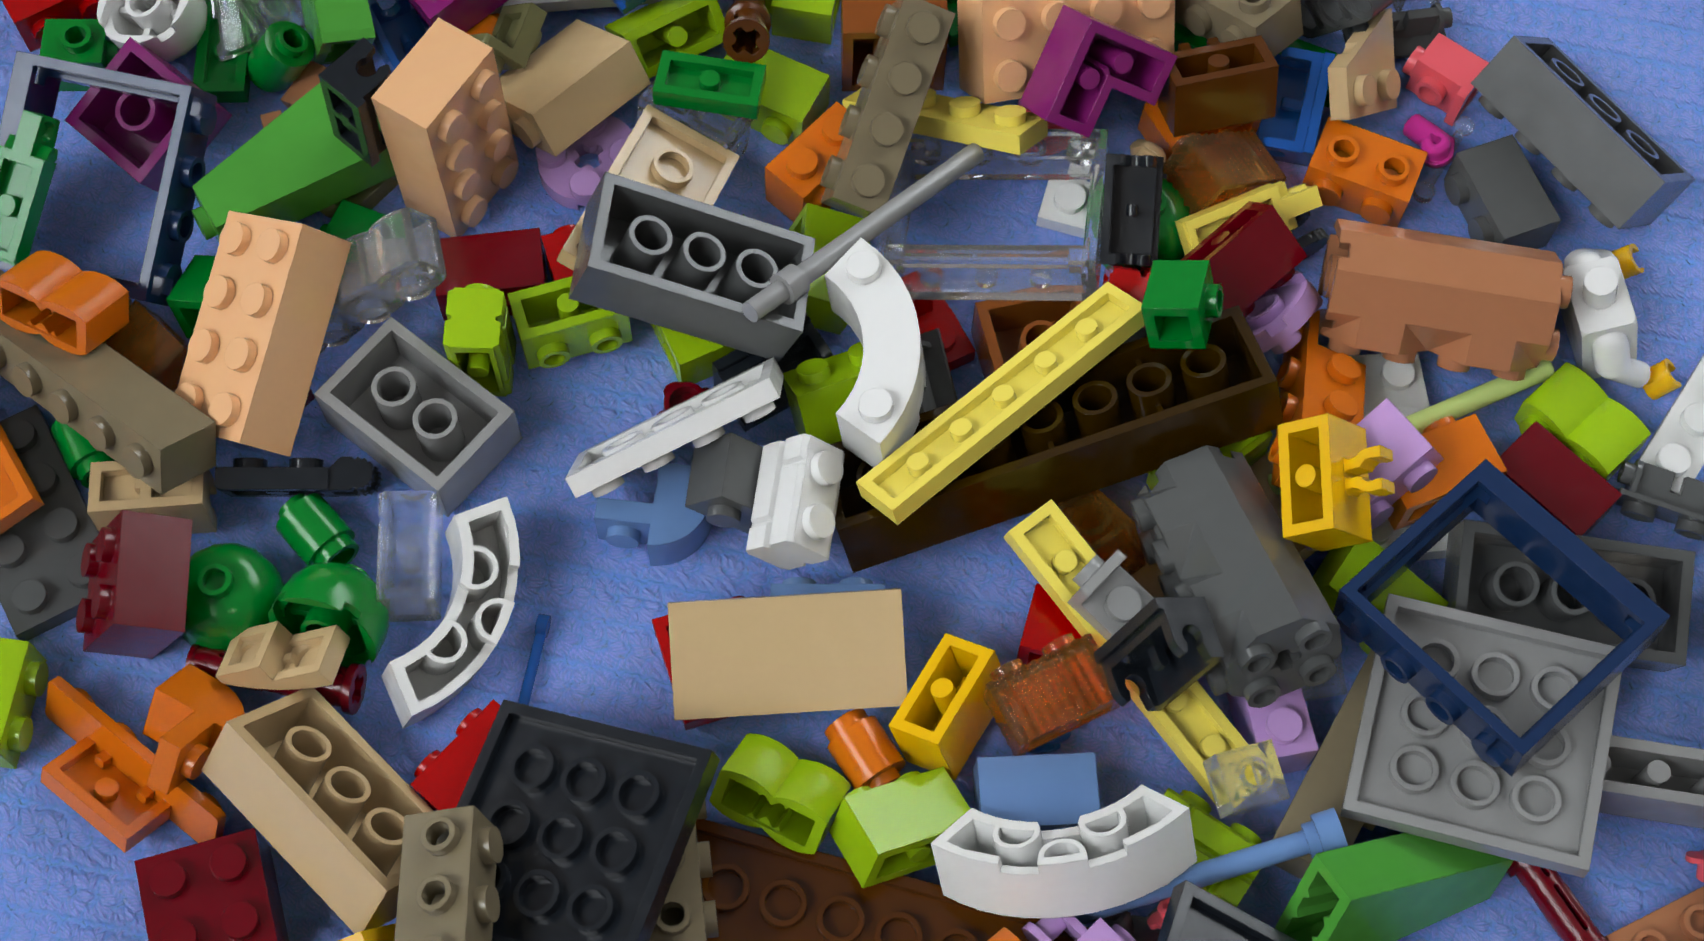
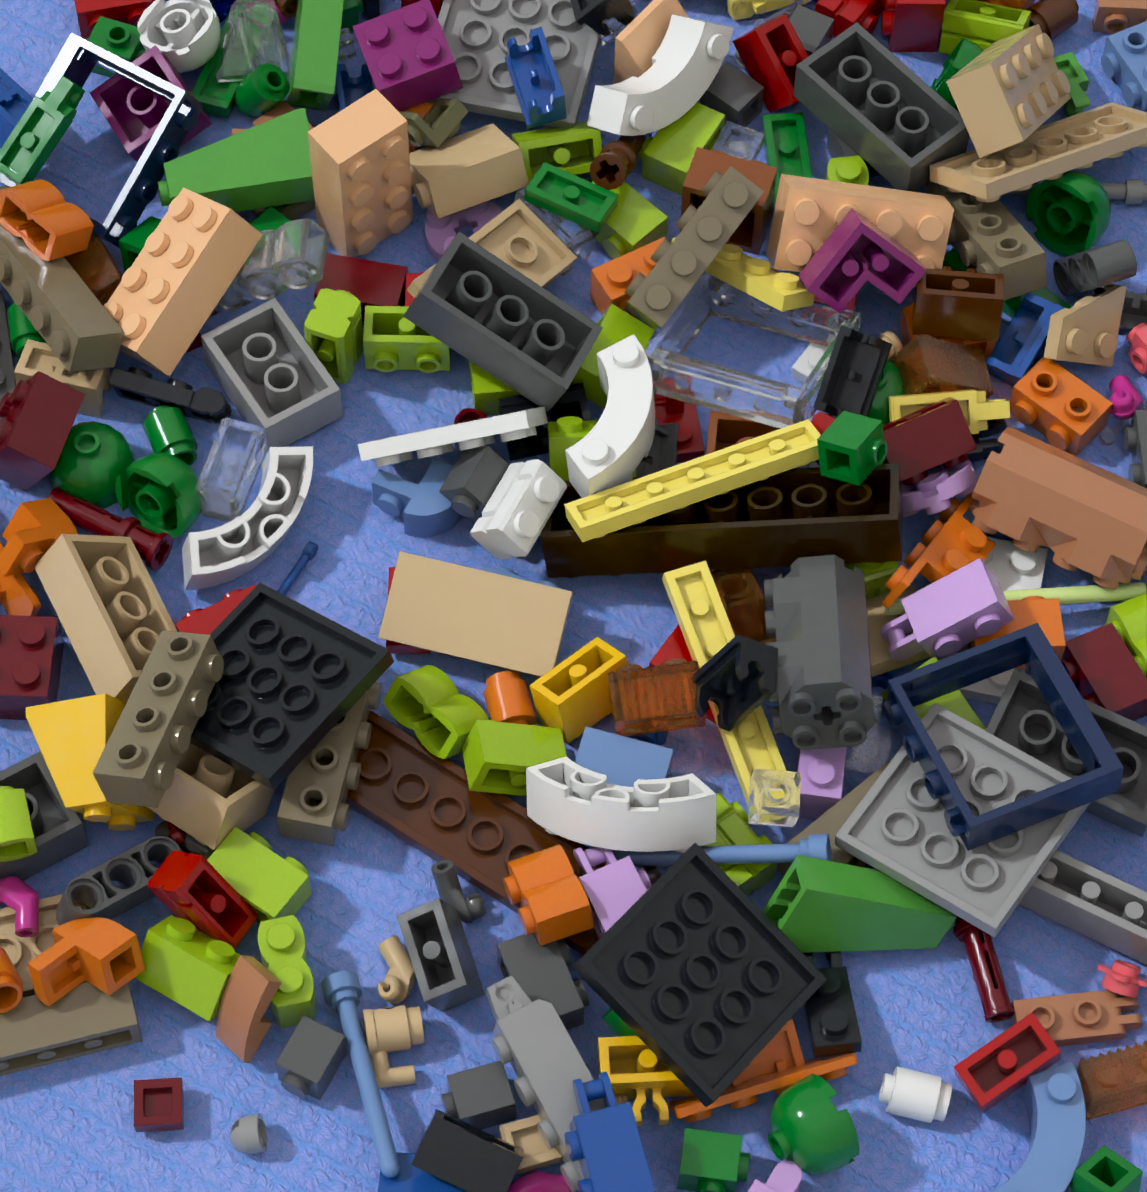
camera: 20 degrees right, 5 degrees down
(277, 660) = (110, 511): tan slope -> none
(348, 94) = (293, 123): black hinge -> none
(795, 281) = (570, 350): light grey bar -> none
(1108, 595) = (715, 629): light grey bracket -> none
(1328, 482) = (908, 602): yellow brick -> none

